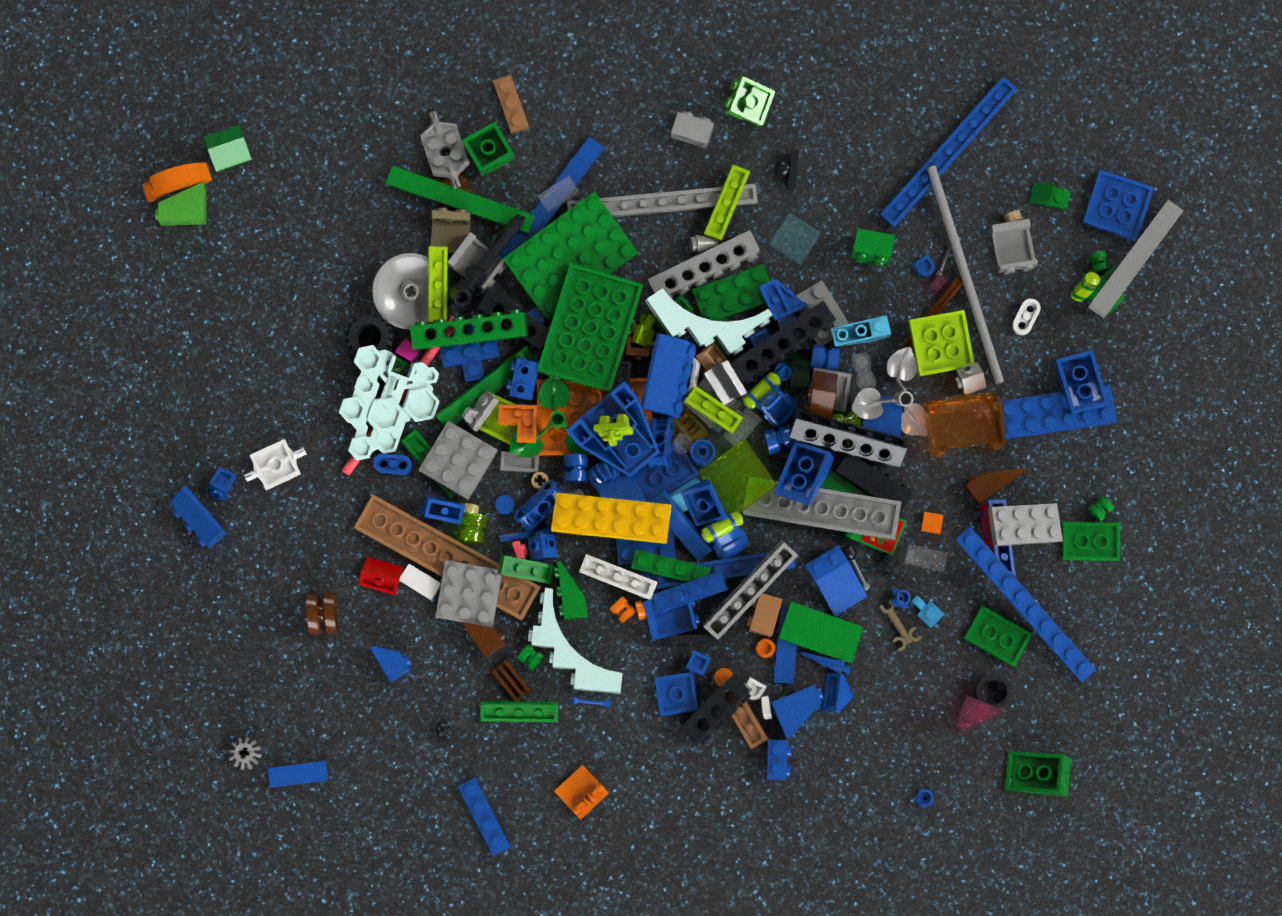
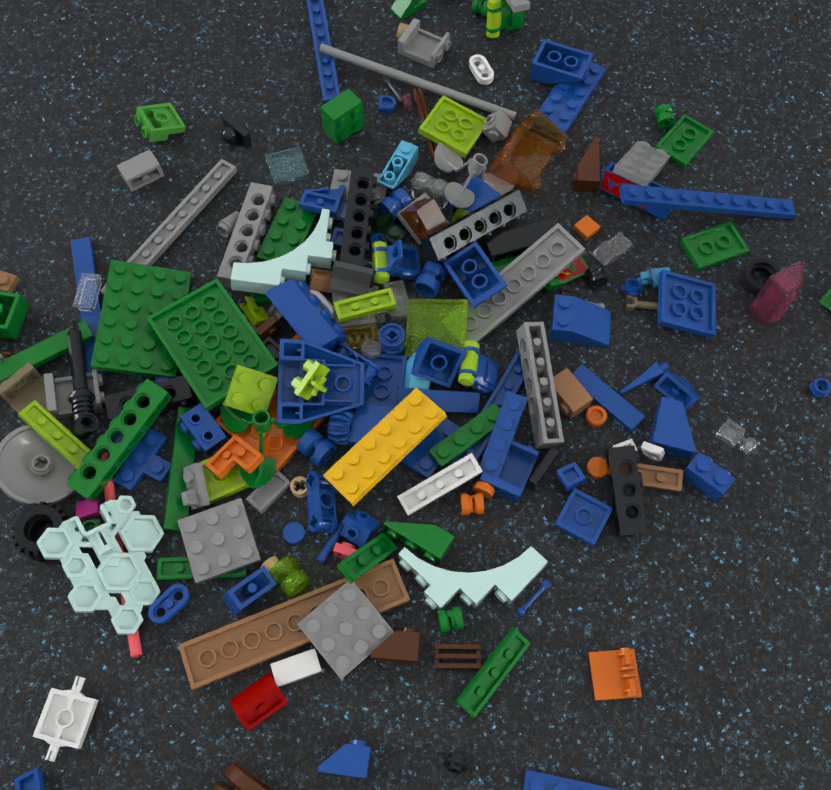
camera: 50 degrees left, 15 degrees down
(575, 390) = (250, 390): none -> lime plate
(727, 202) = (216, 184): lime tile -> none
(820, 632) = (615, 363): green tile -> none
(829, 756) = (732, 433): none -> clear plate
(916, 650) = (687, 304): none -> blue plate

